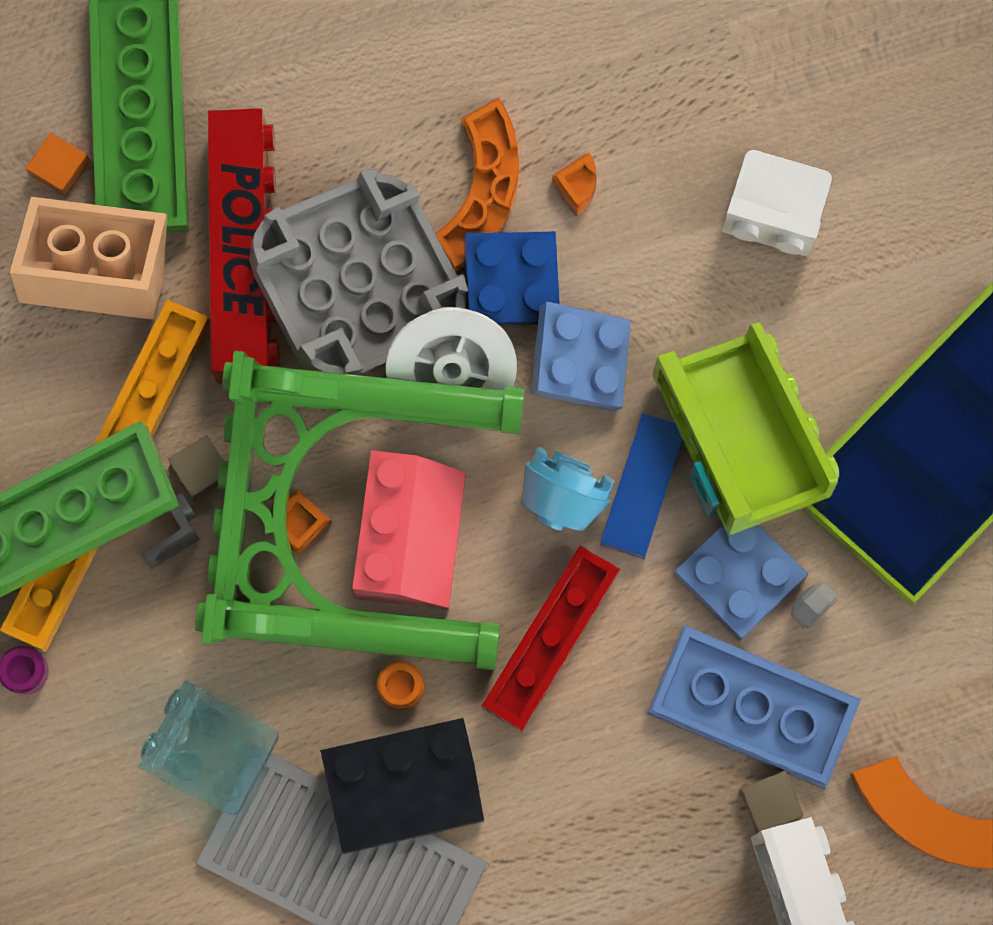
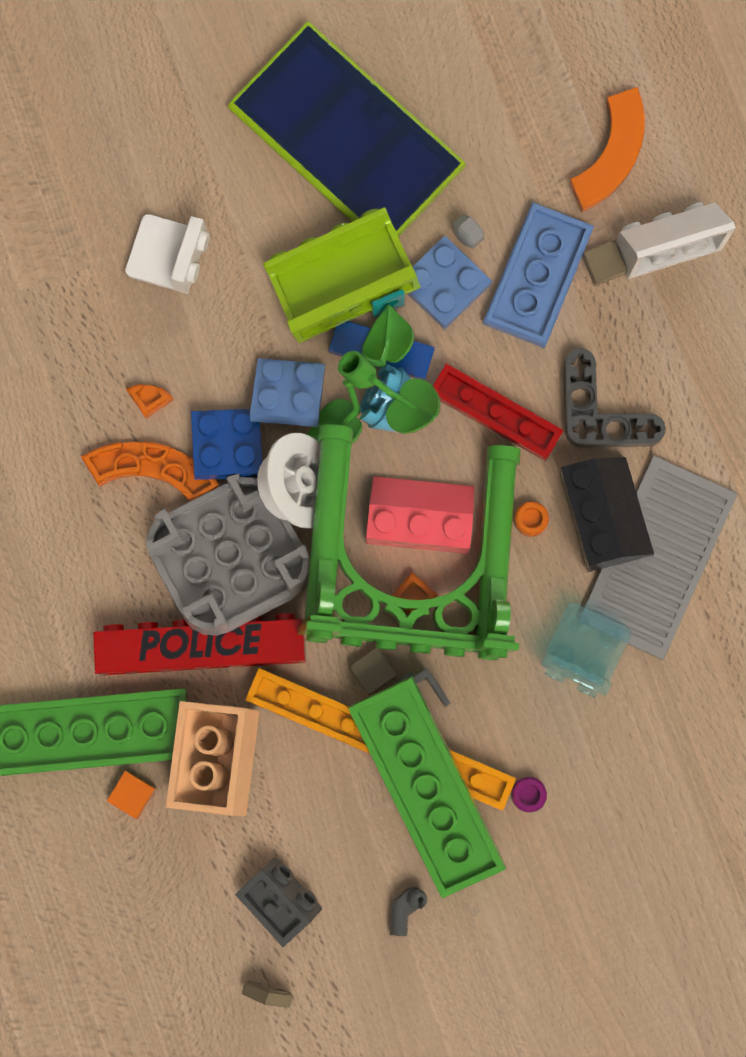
camera: 90 degrees left, 5 degrees up
(547, 507) = (413, 406): none -> bright green plant
(549, 771) = (588, 414): none -> dark grey beam

